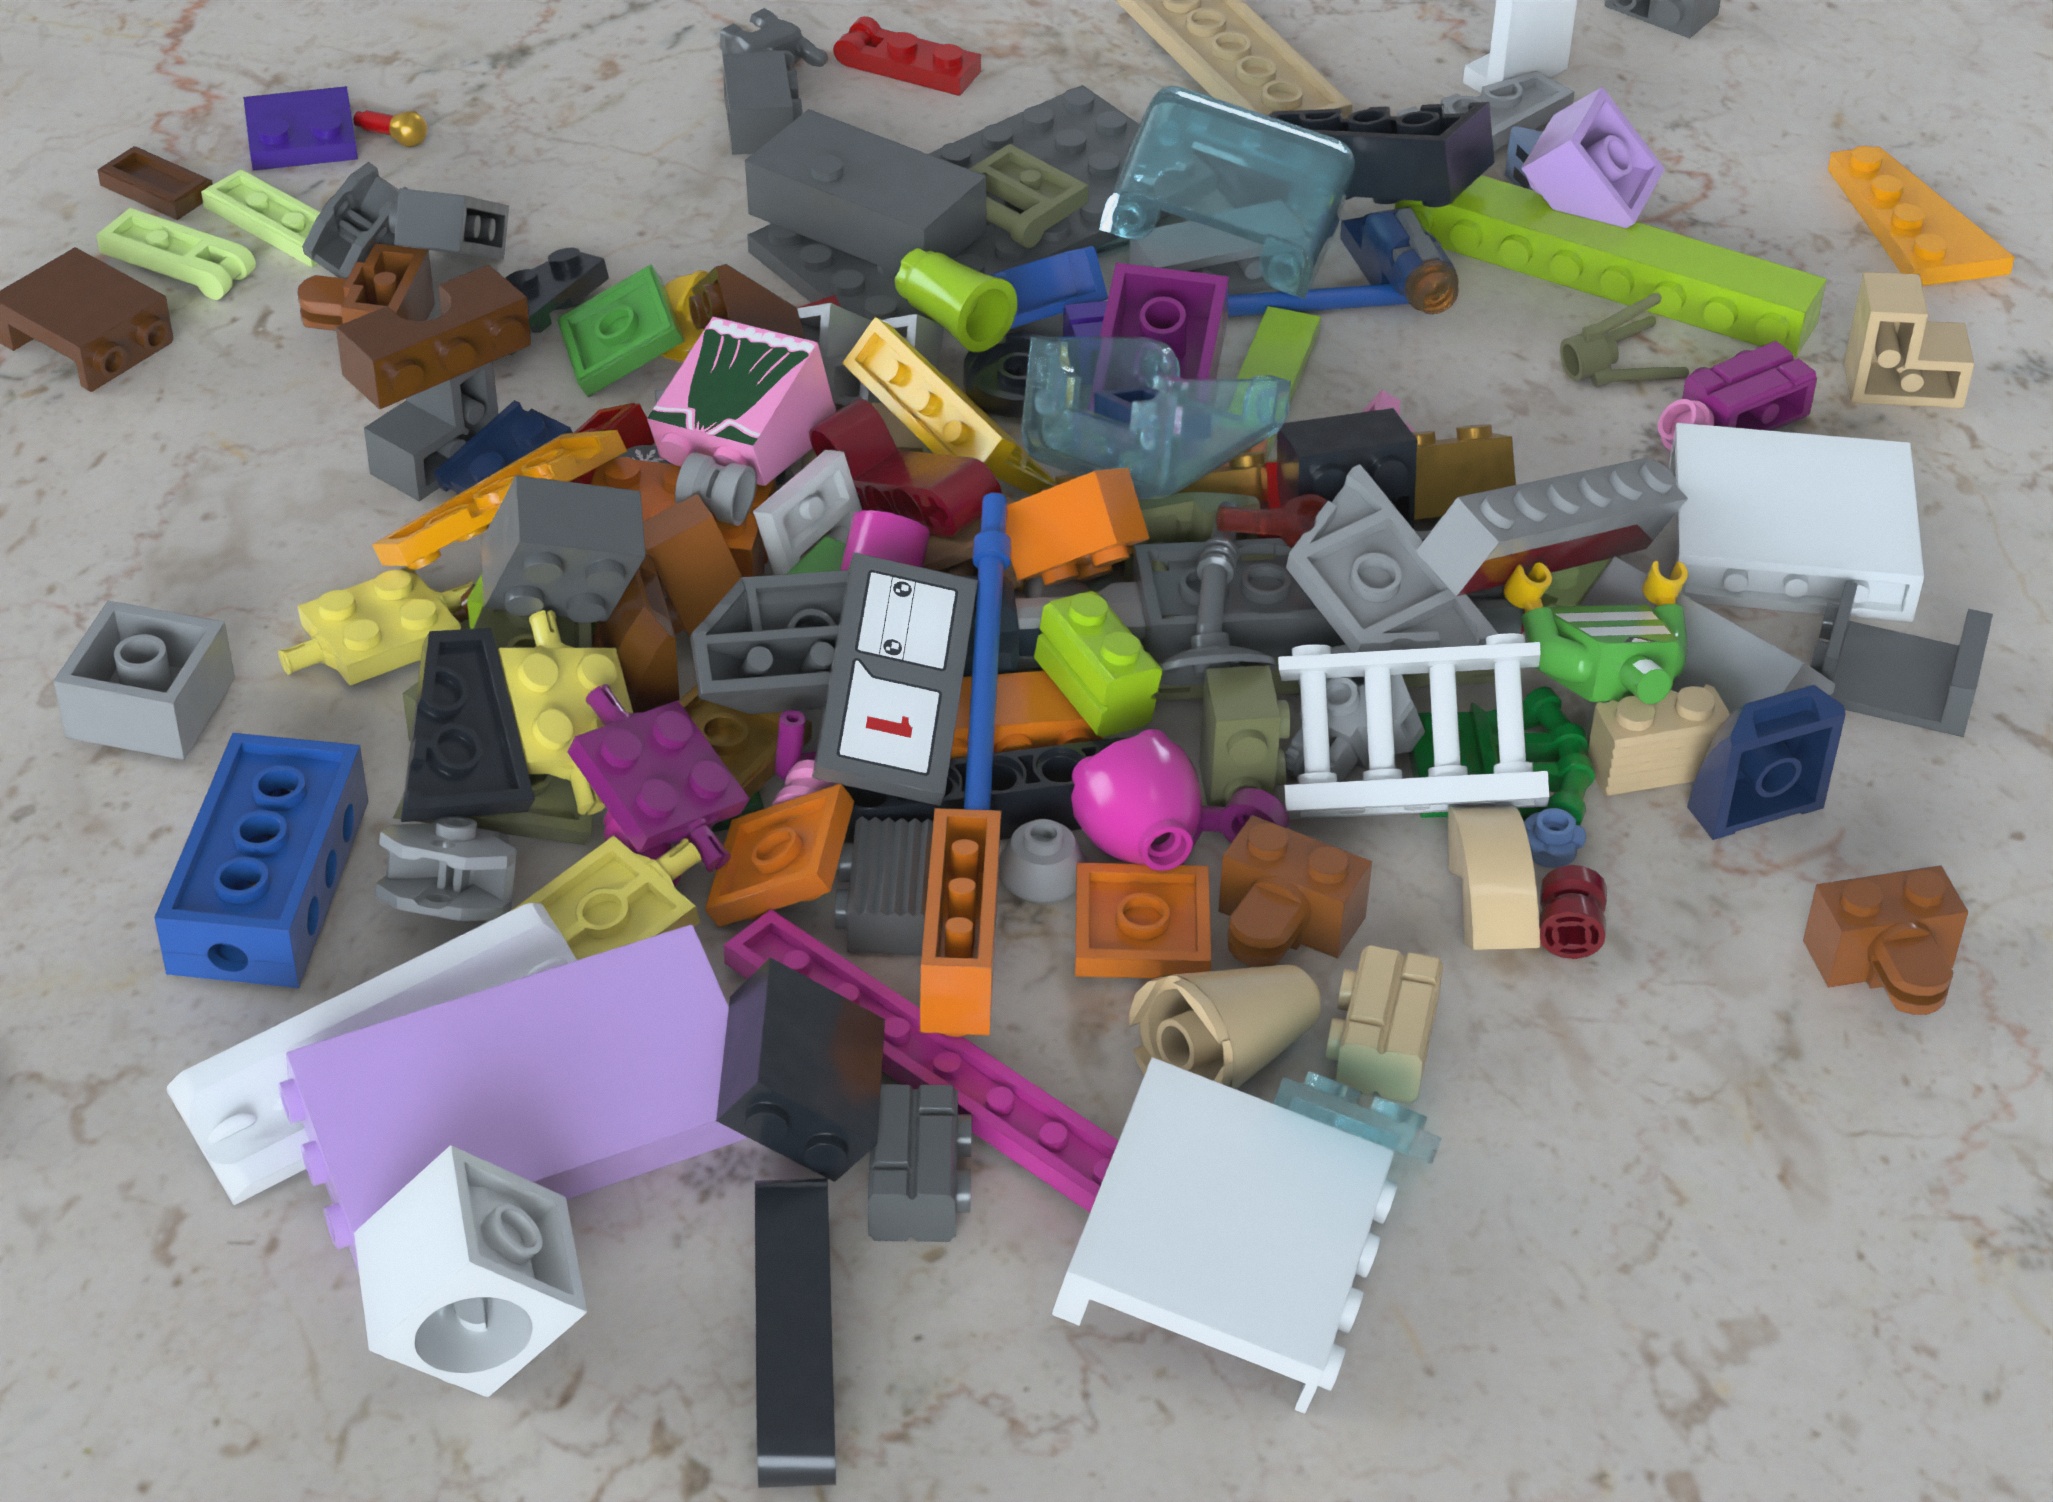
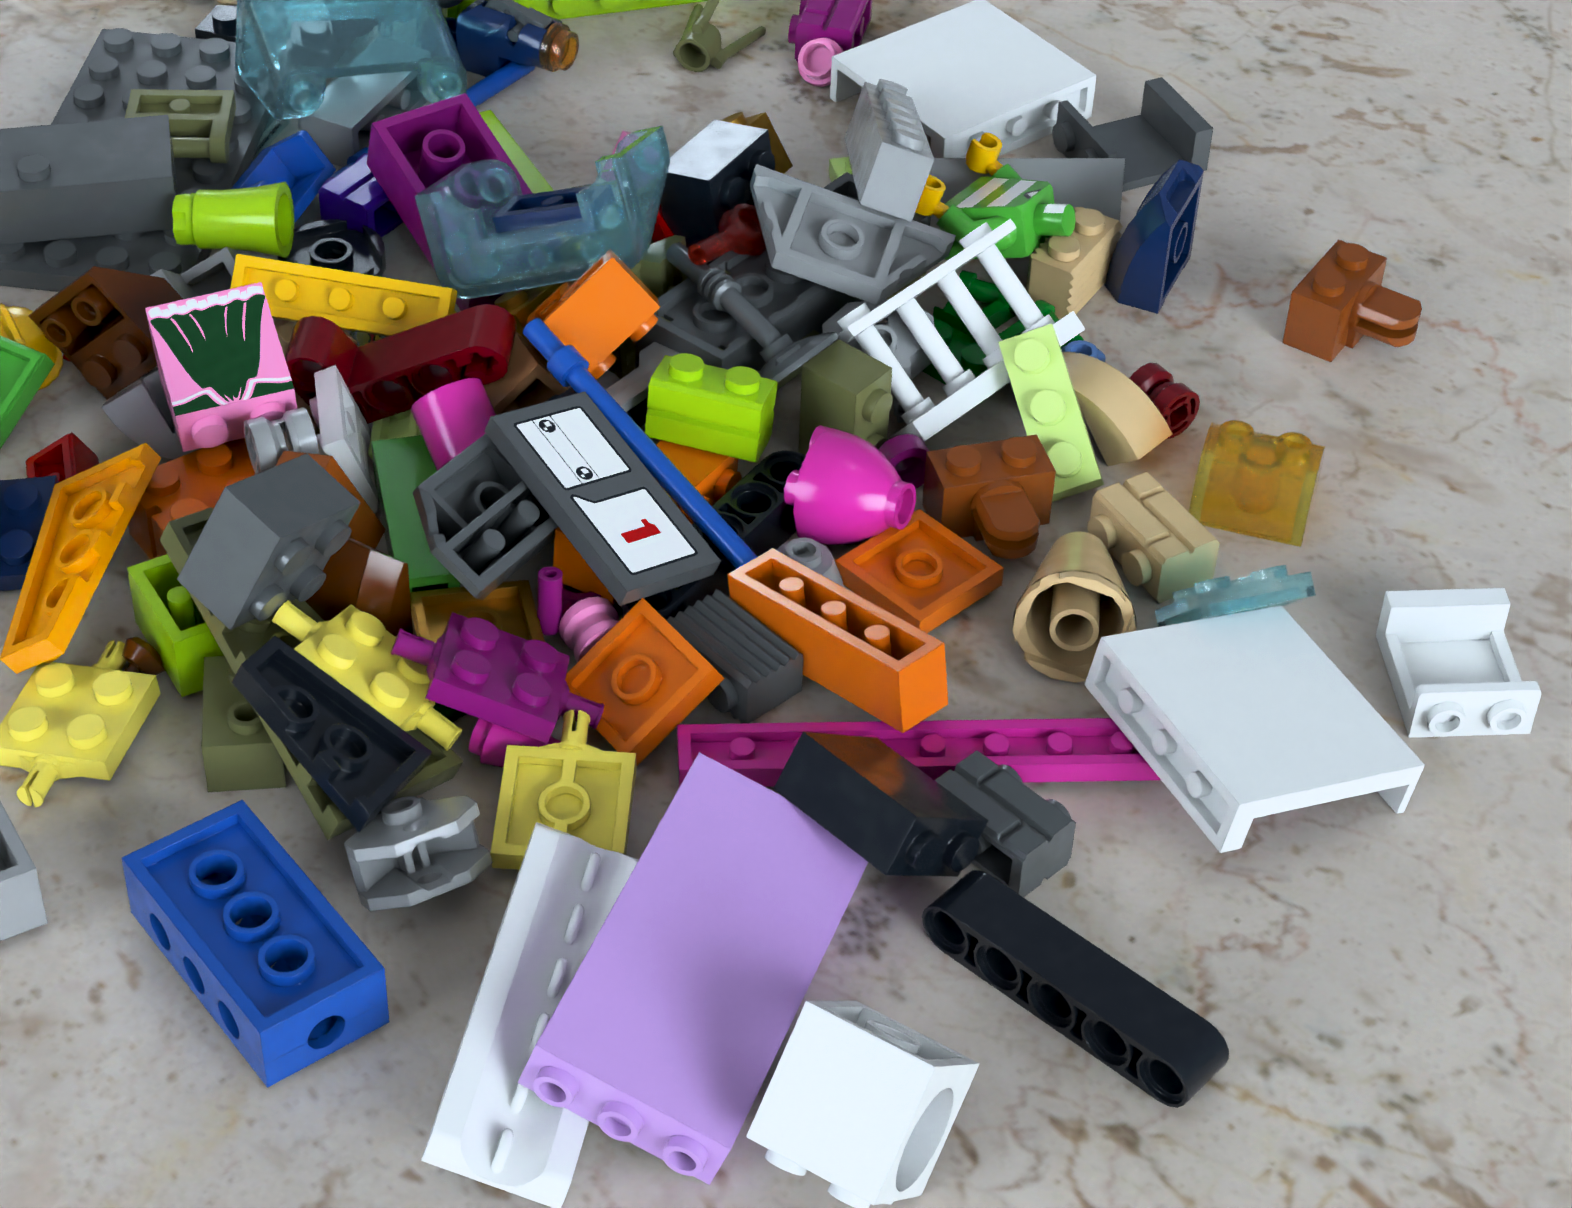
camera: 45 degrees left, 0 degrees up
(1421, 853) = (1051, 408): none -> yellowish green plate
(1522, 1322) = (1454, 663): none -> white panel
(1562, 1040) = (1256, 482): none -> clear yellow brick

